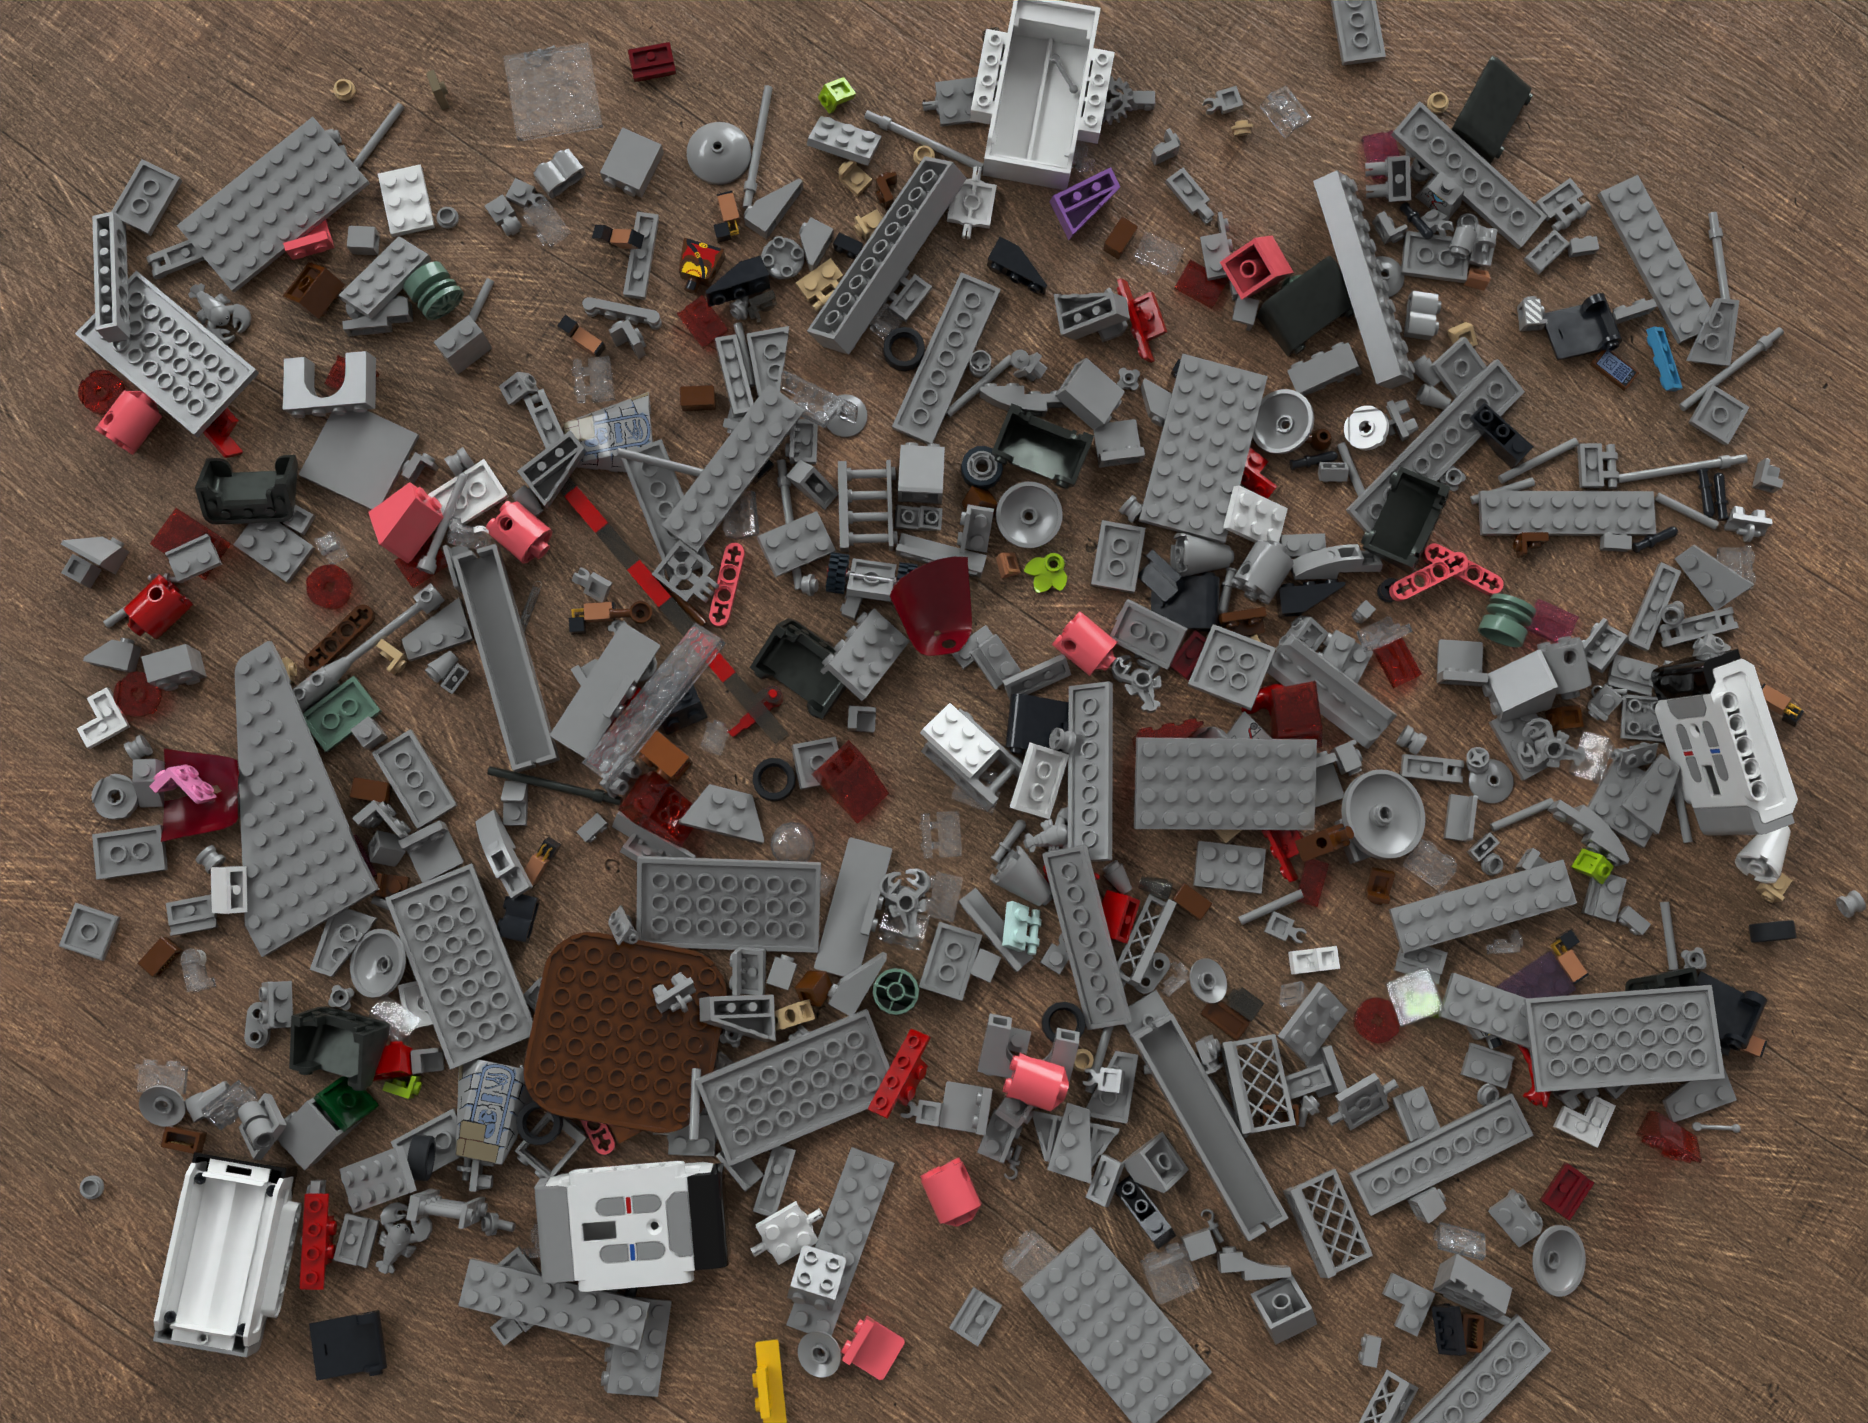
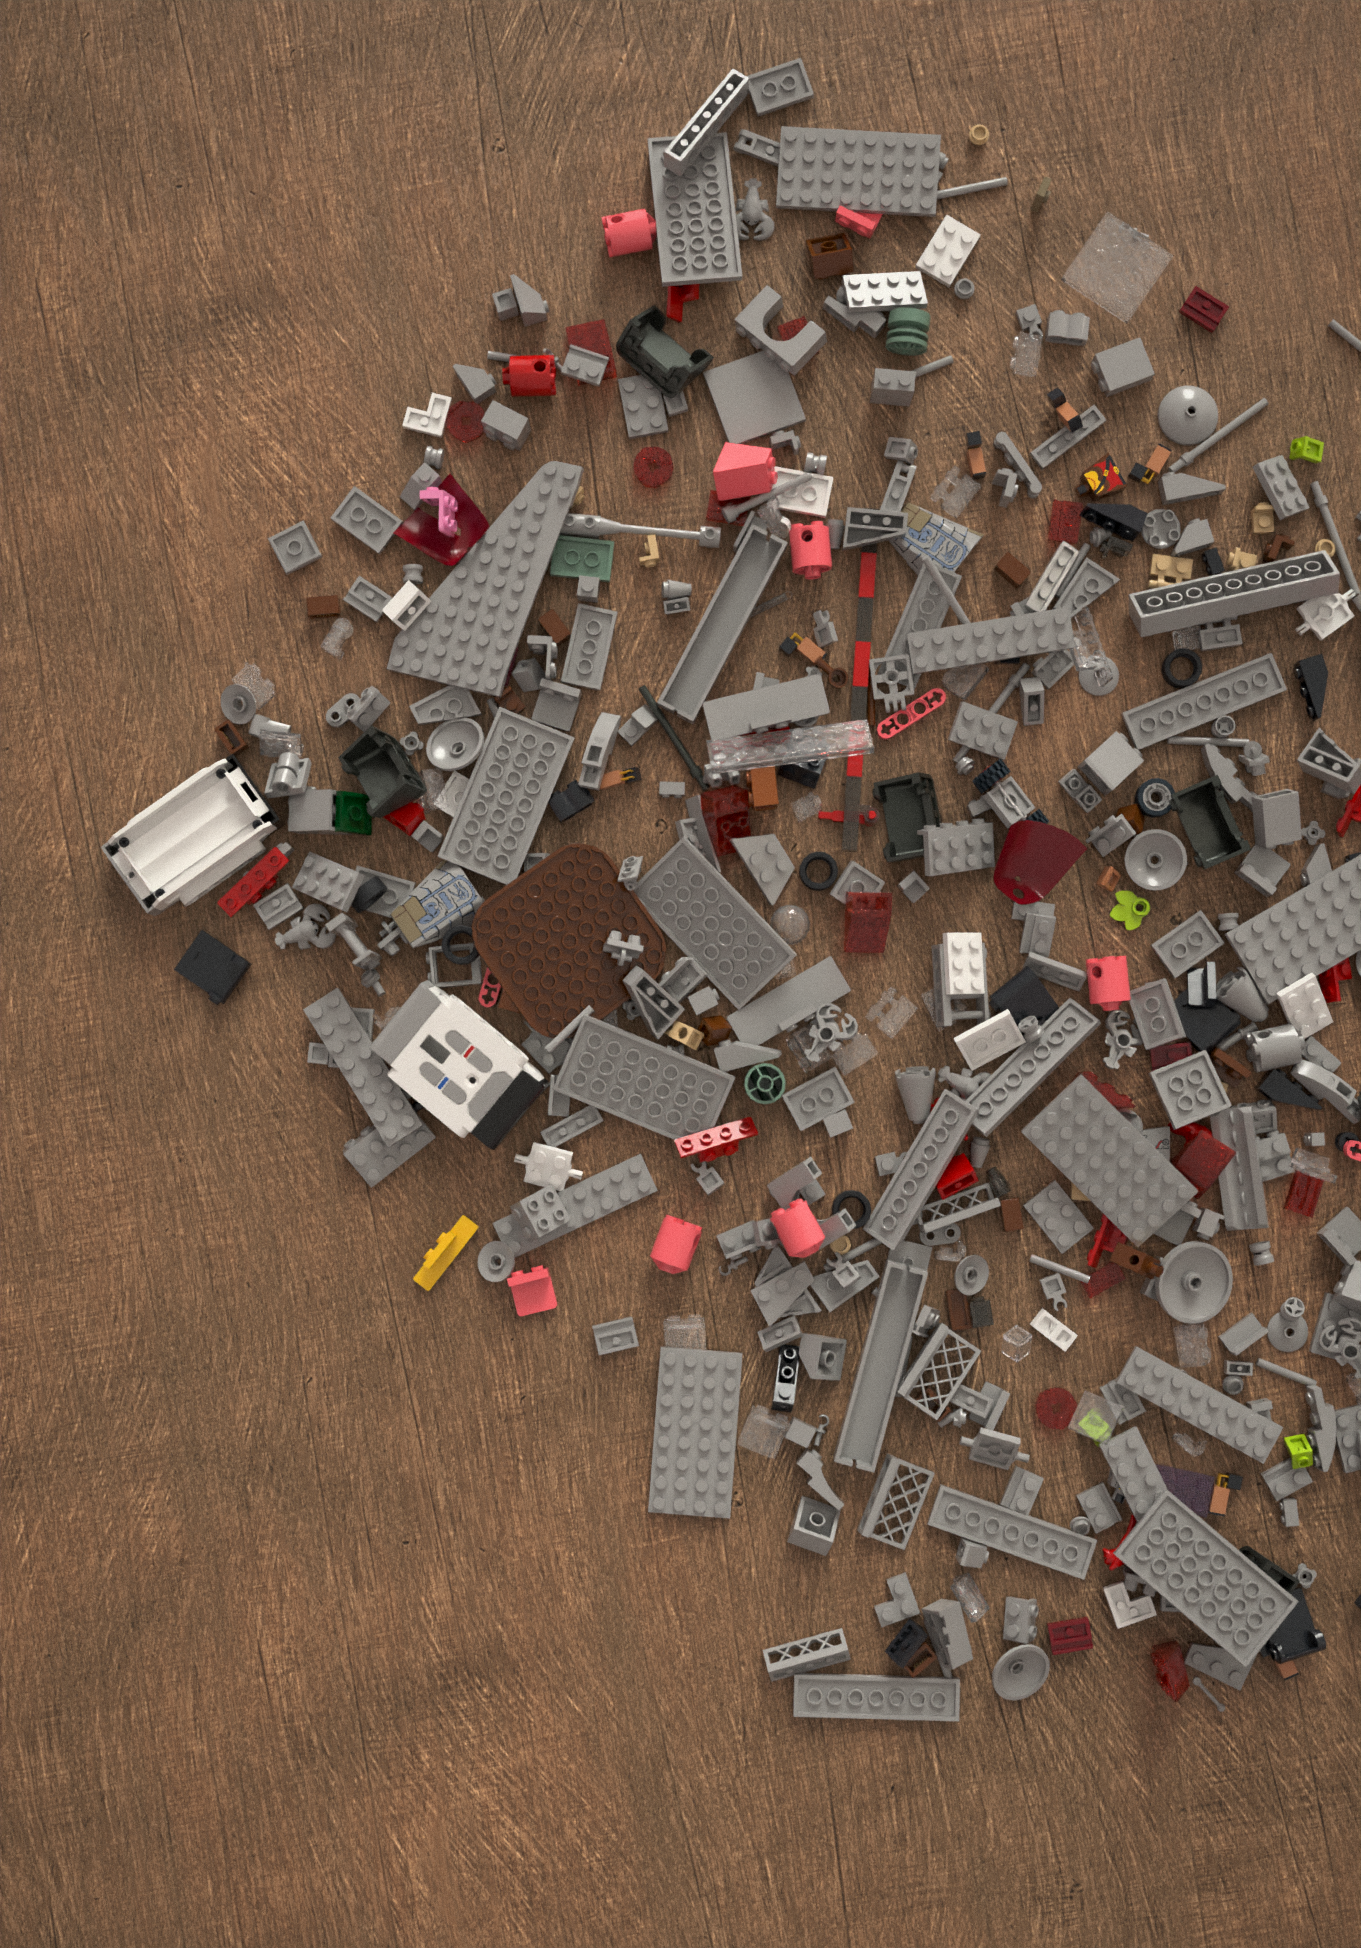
camera: 55 degrees right, 5 degrees up
(92, 384) = (628, 183): clear red plate -> none
(92, 1187) = (148, 713): light grey plate -> none
(104, 803) = (380, 472): light grey plate -> none
(331, 547) = (679, 442): clear leg -> none
(336, 635) = (627, 510): reddish brown beam -> none
(363, 240) = (894, 252): light grey panel -> none
(399, 1087) = (394, 835): lime bracket -> none
(439, 633) = (695, 565): light grey wing -> none
(502, 212) = (1003, 319): light grey plate -> none
(848, 517) = (1048, 731): light grey fence -> none
(928, 551) = (1065, 819): light grey fence -> none
(966, 1107) = (736, 1200): light grey bracket -> none
(992, 927) = (866, 1107): light grey fence -> none
(1005, 846) = (935, 1058): light grey piece -> none
(1016, 925) = (880, 1119): light aqua plate -> none
(1312, 1022) = (1012, 1368): light grey plate -> none
(1370, 1350) = (843, 1605): light grey piece -> none
(1379, 886) = (1144, 1325): reddish brown bracket -> none
(1431, 768) = (1256, 1284): light grey plate -> none
(1669, 935) = (1302, 1546): light grey bar -> none

